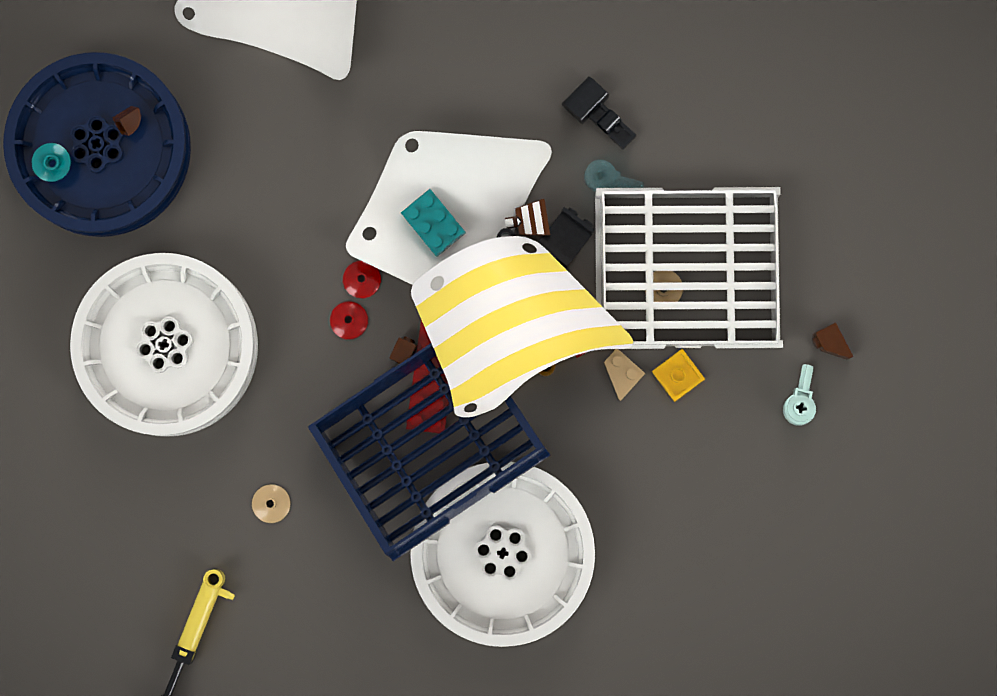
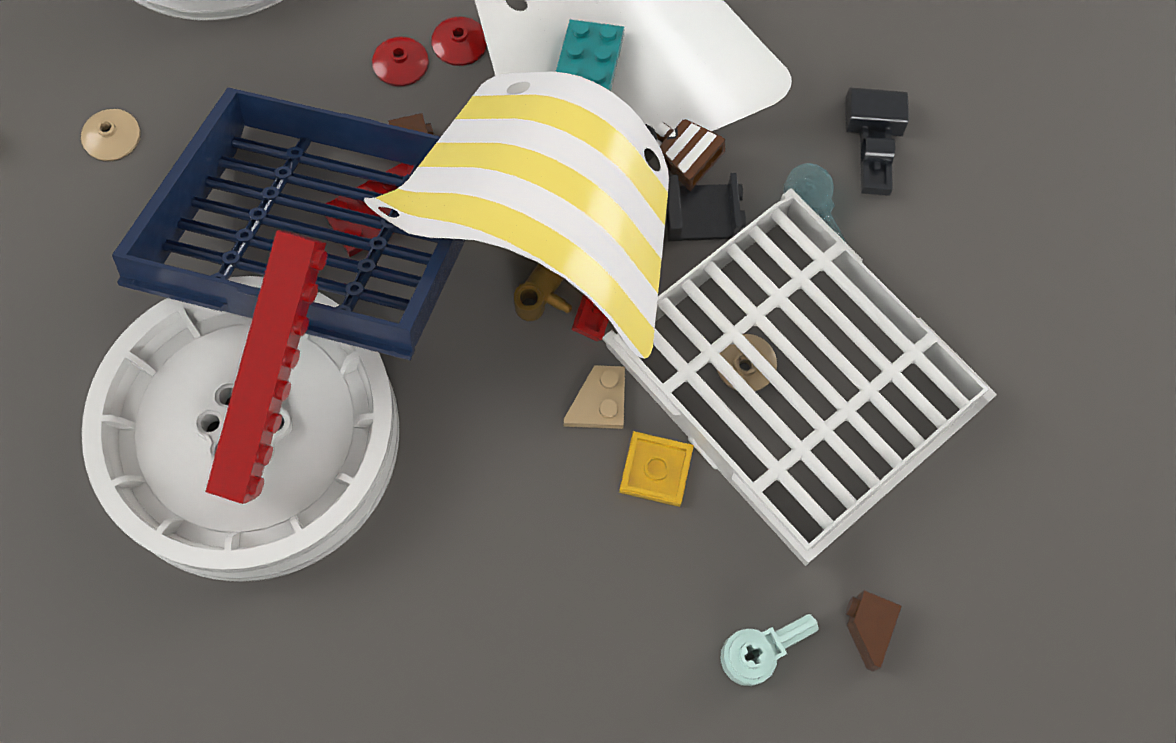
camera: 45 degrees right, 15 degrees down
(503, 523) = (266, 367): none -> red brick

